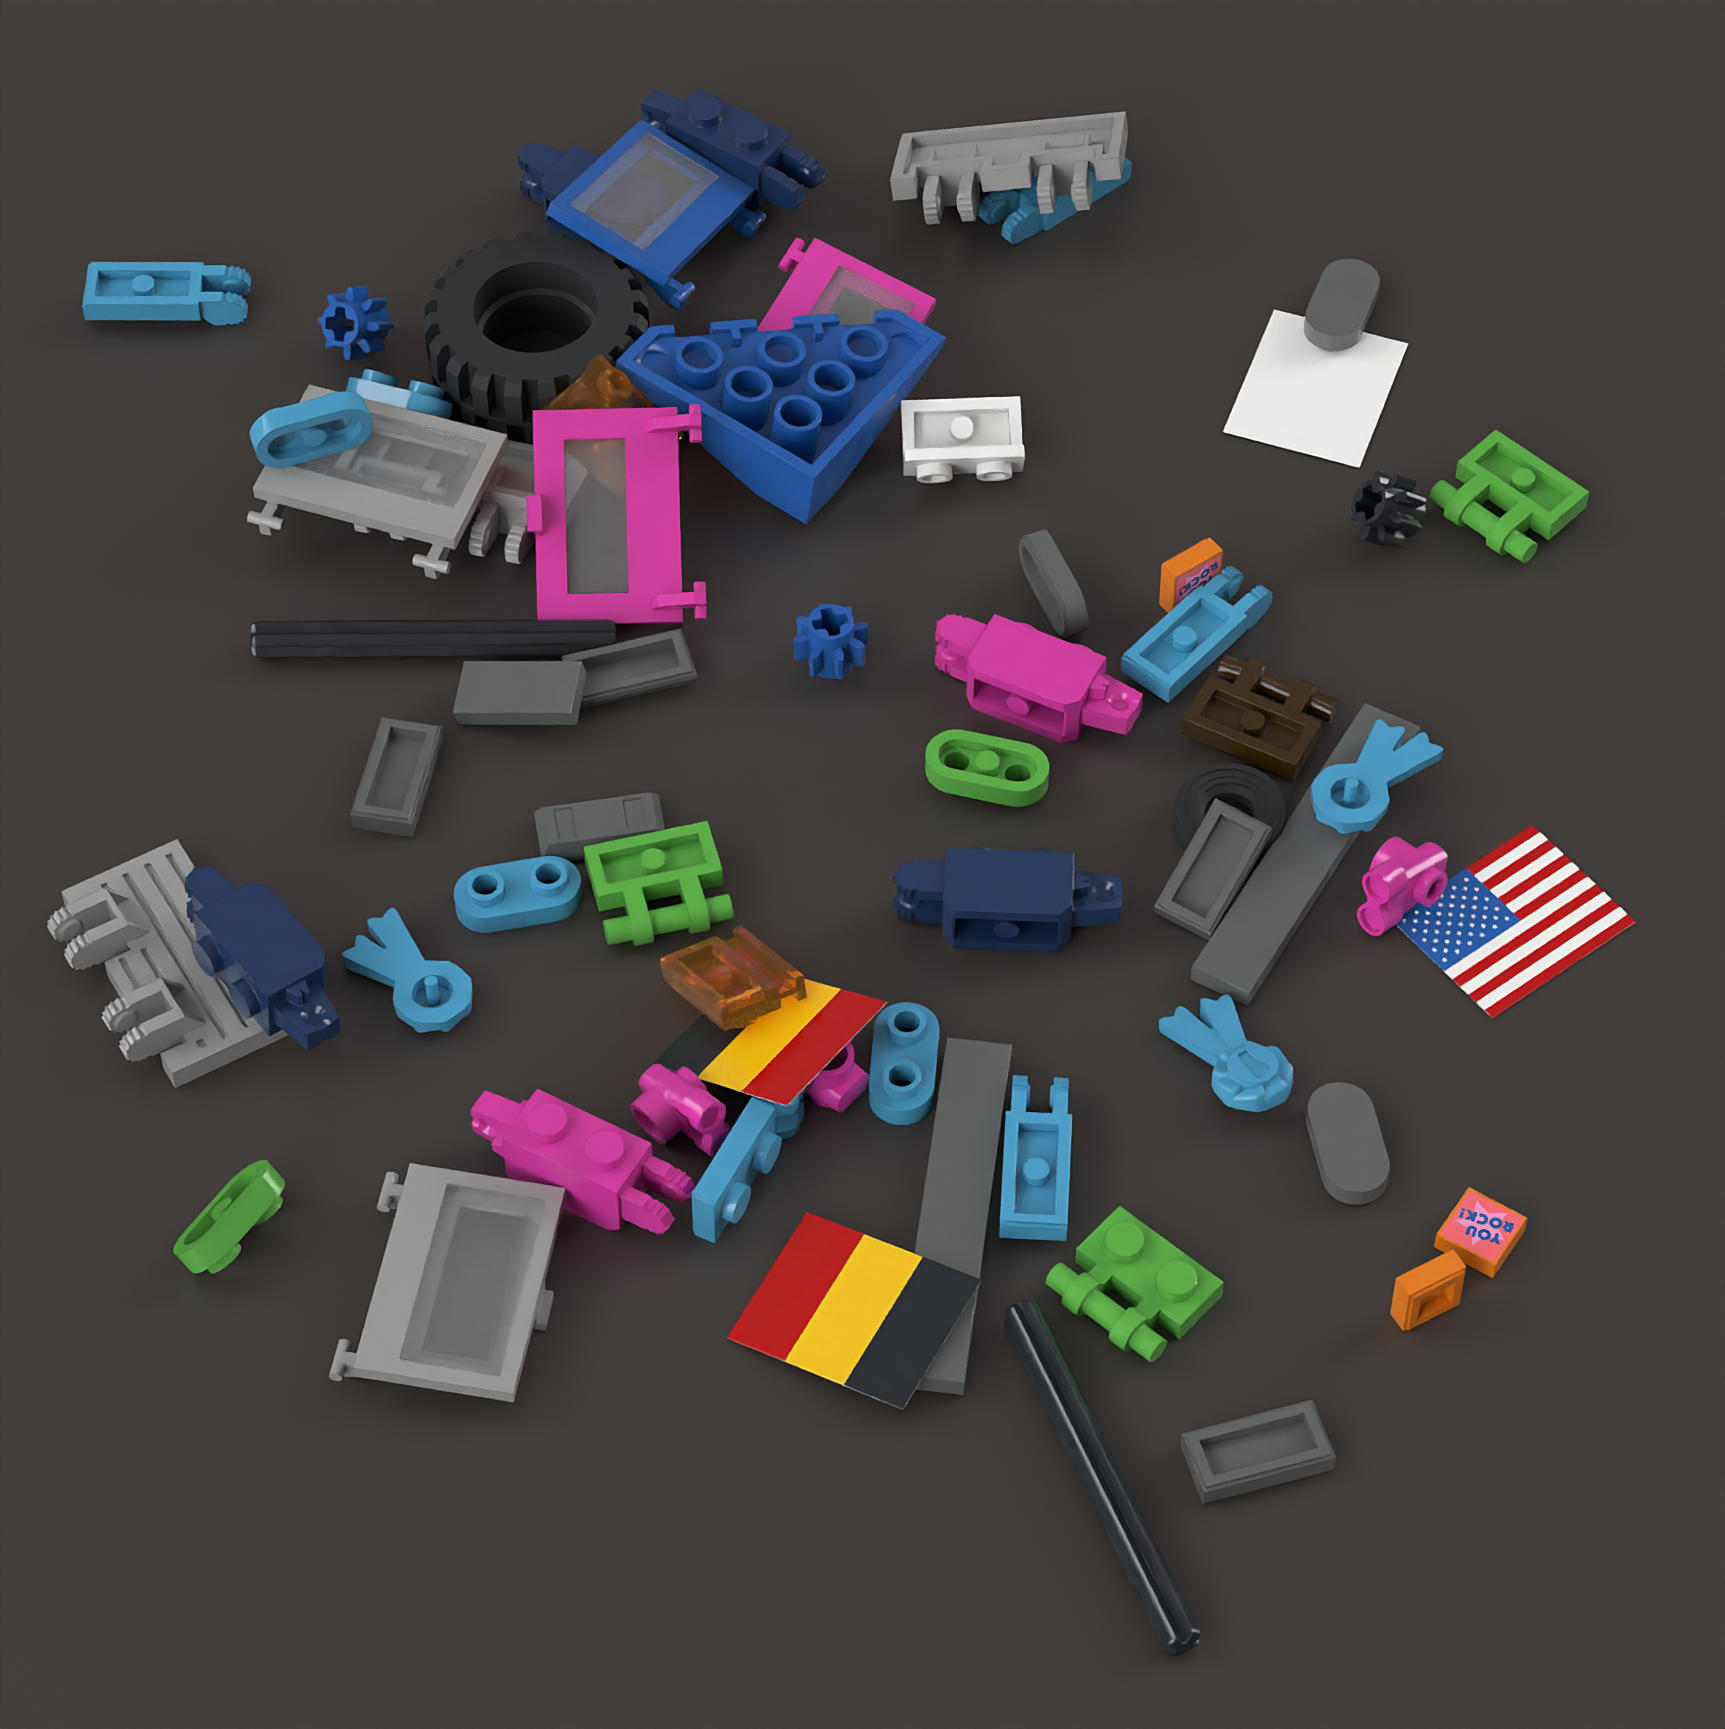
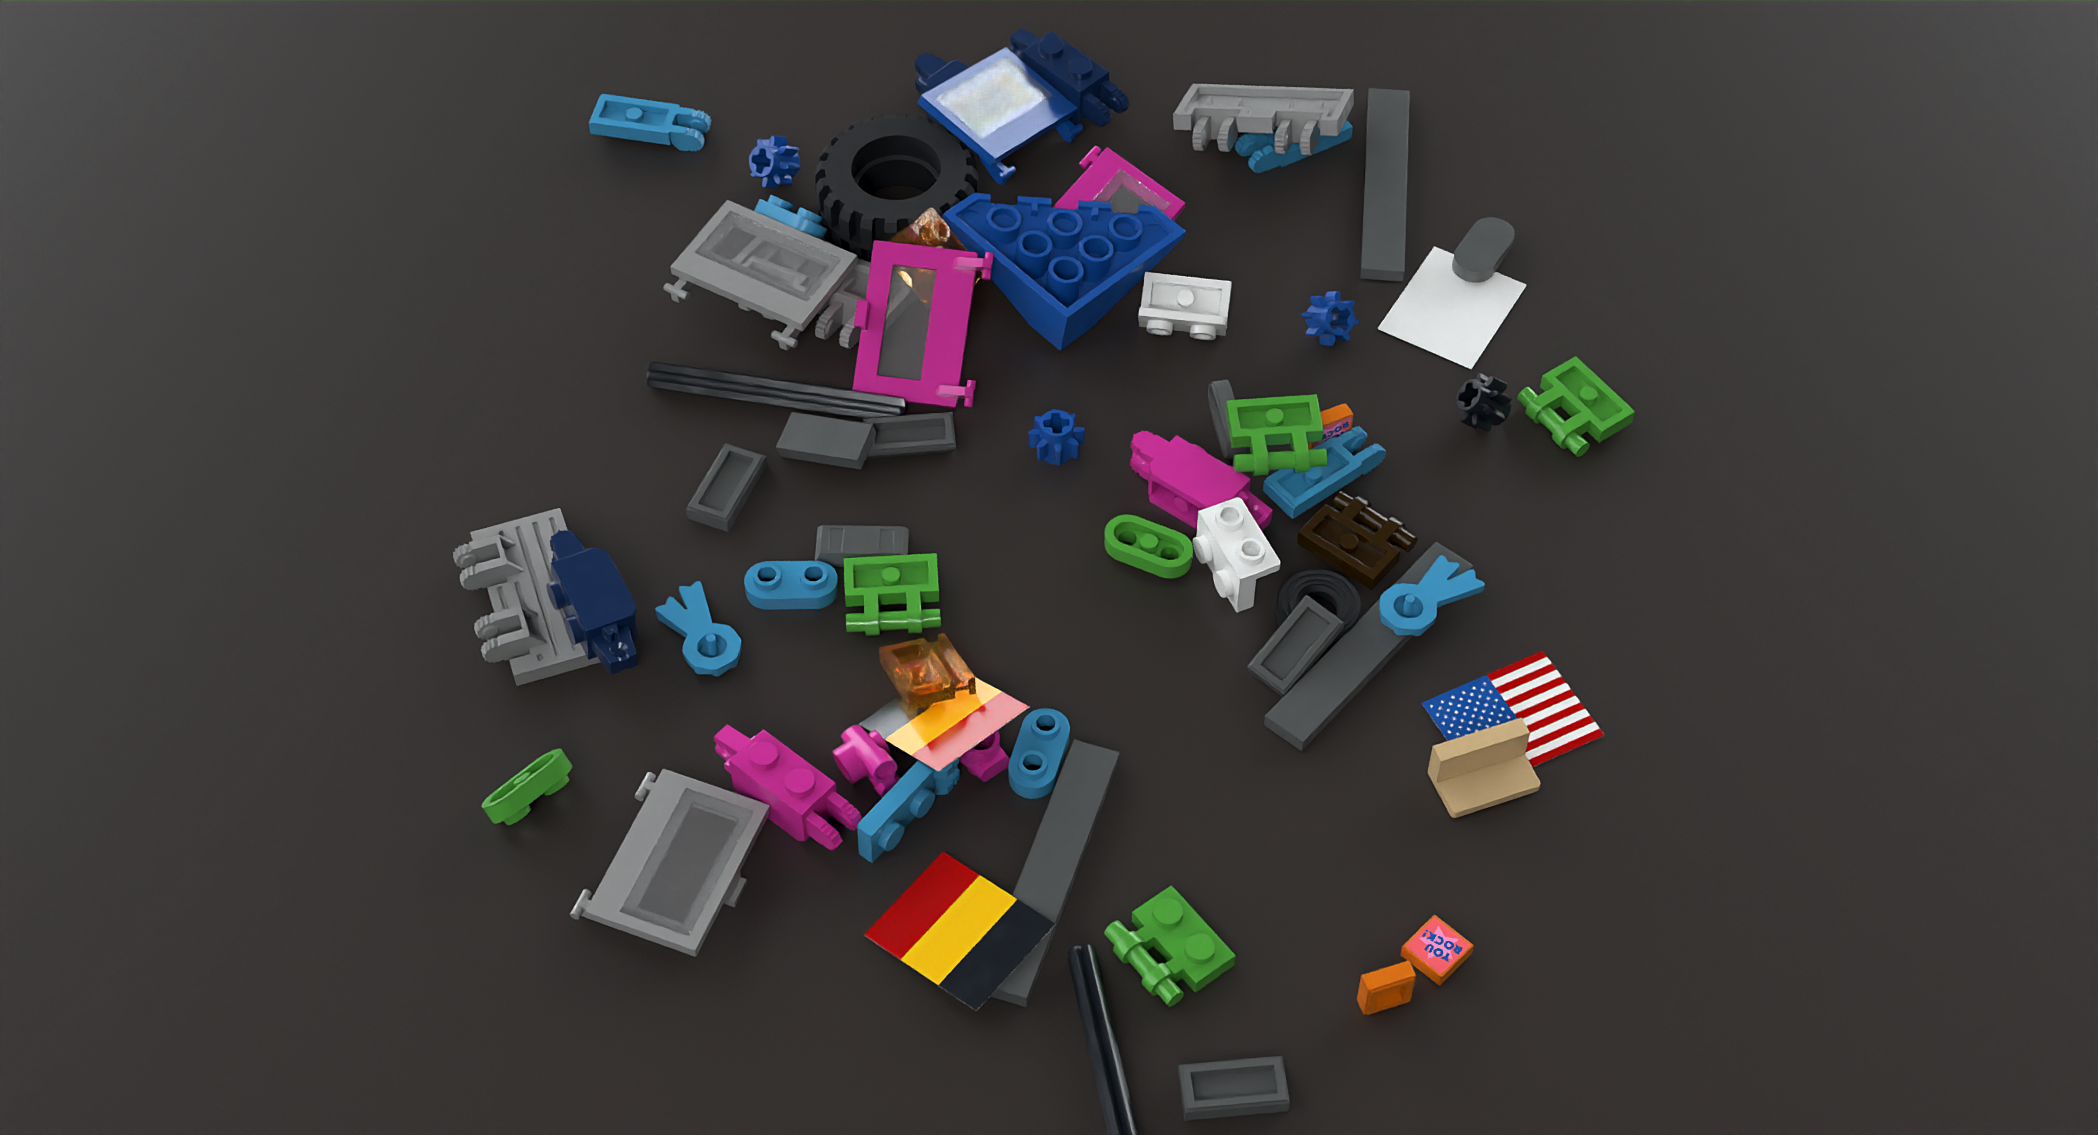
camera: 10 degrees right, 0 degrees up
(311, 429) = (717, 231): dark azure plate -> none
(1006, 898) = (1140, 643): dark blue hinge -> none
(1036, 1165) = (1117, 844): dark azure hinge -> none
(1104, 756) = (1234, 551): none -> white bracket
(1126, 576) = (1276, 422): none -> bright green plate
(1160, 427) = (1330, 318): none -> blue gear
(1191, 235) = (1385, 185): none -> dark grey tile
(1244, 1072) = (1286, 800): dark azure piece -> none
(1347, 1143) = (1352, 866): dark grey tile -> none
(1398, 881) = (1432, 676): dark pink plate -> none
(1491, 989) = (1483, 768): none -> tan panel

